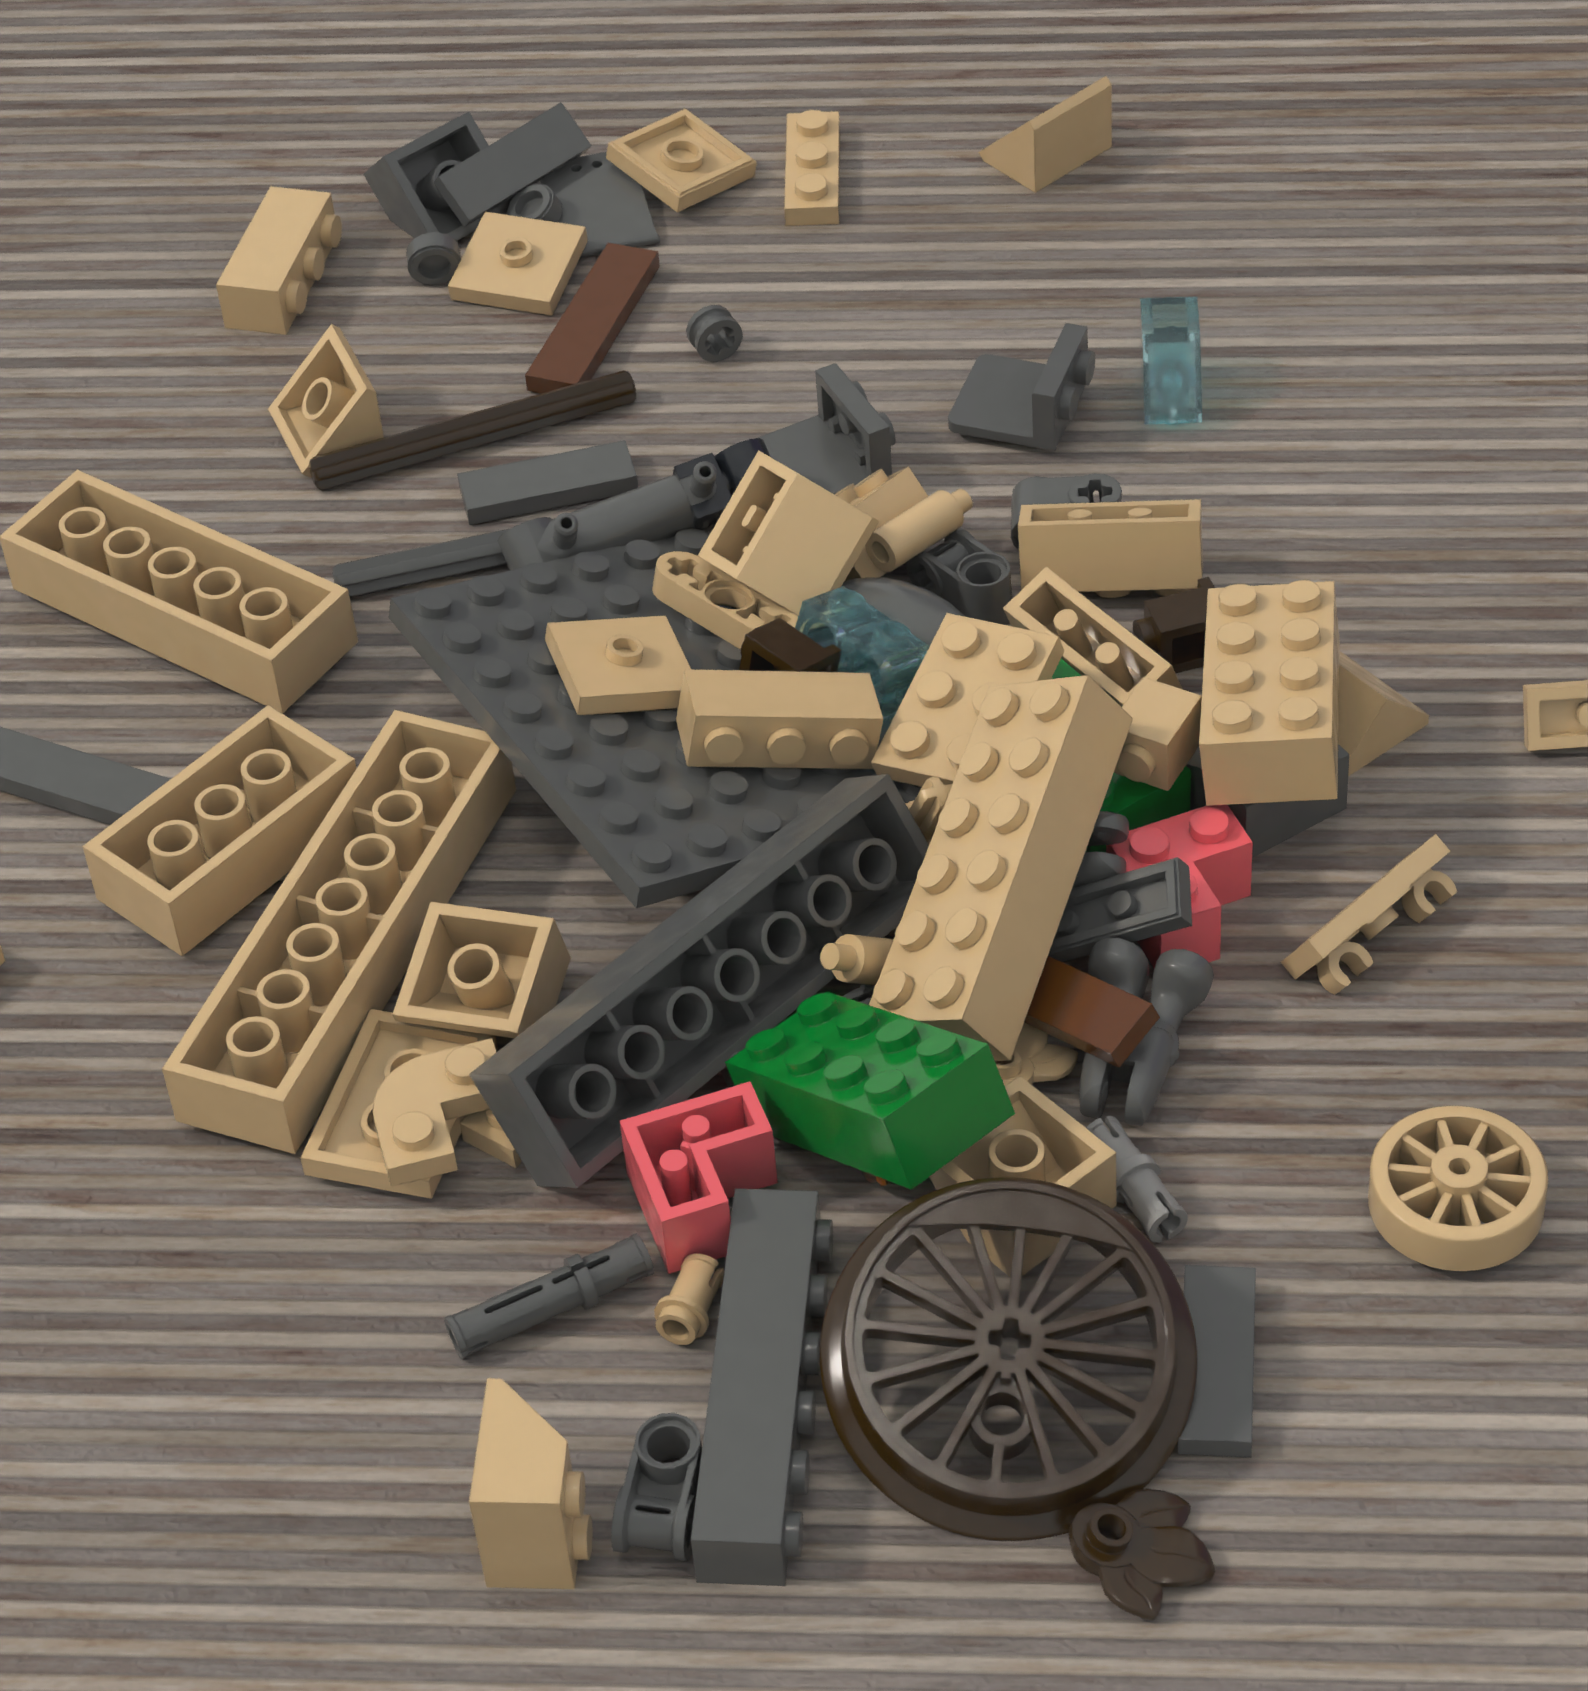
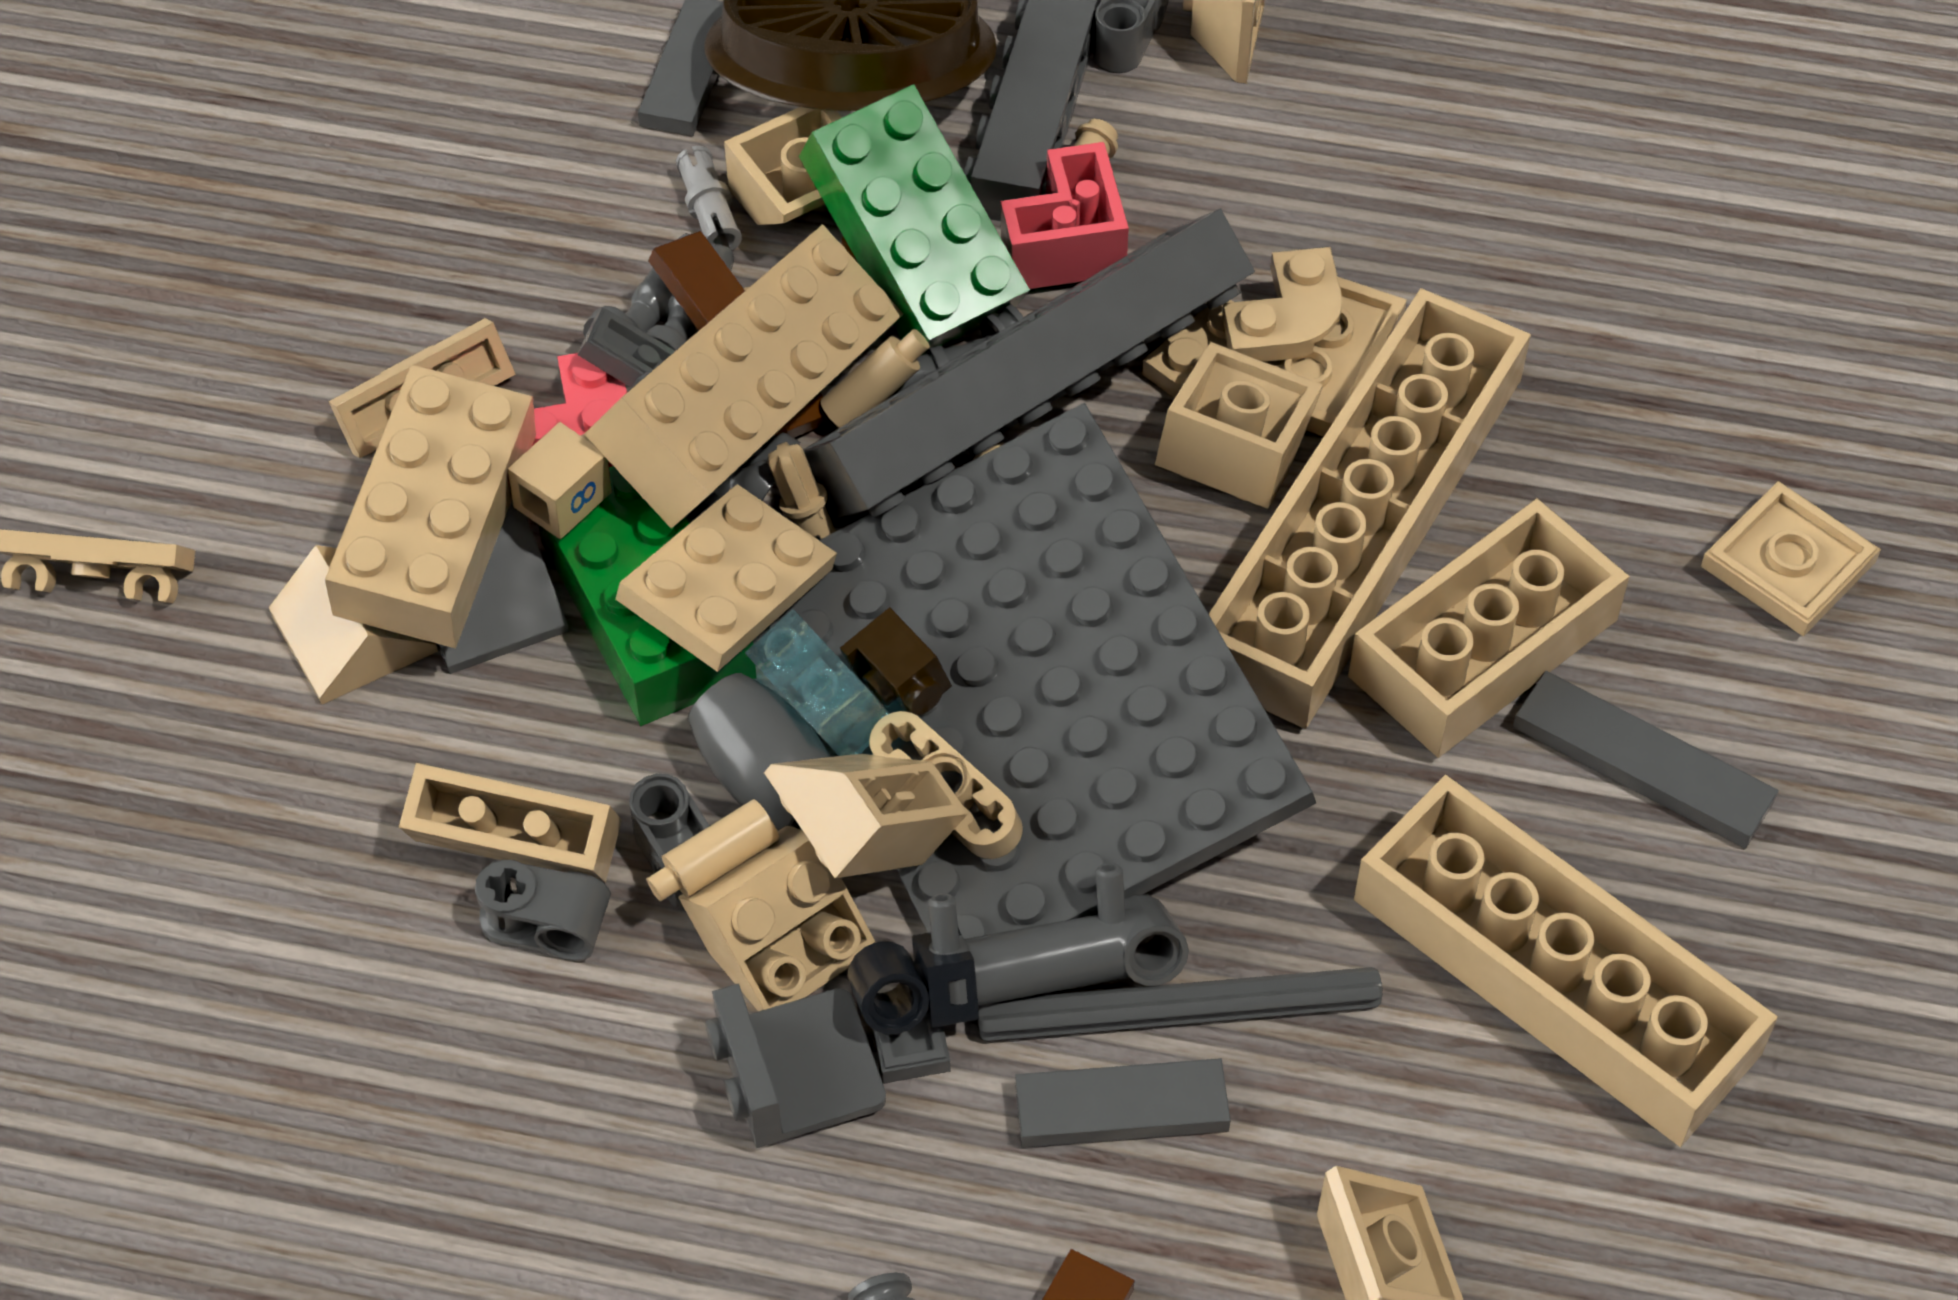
camera: 175 degrees left, 10 degrees up
(472, 430) = (1186, 1207): dark brown axle -> none
(529, 1304) = (1179, 178): dark grey pin -> none
(618, 663) = (1069, 673): tan plate -> none
(778, 719) = (926, 578): tan brick -> none
(1023, 398) = (528, 1110): dark grey bracket -> none
(1090, 637) = (576, 684): tan brick -> none
(1170, 360) = (342, 1114): clear light blue slope -> none
(1177, 626) = (470, 725): dark brown brick -> none
(1460, 1170) = (457, 136): tan wheel -> none

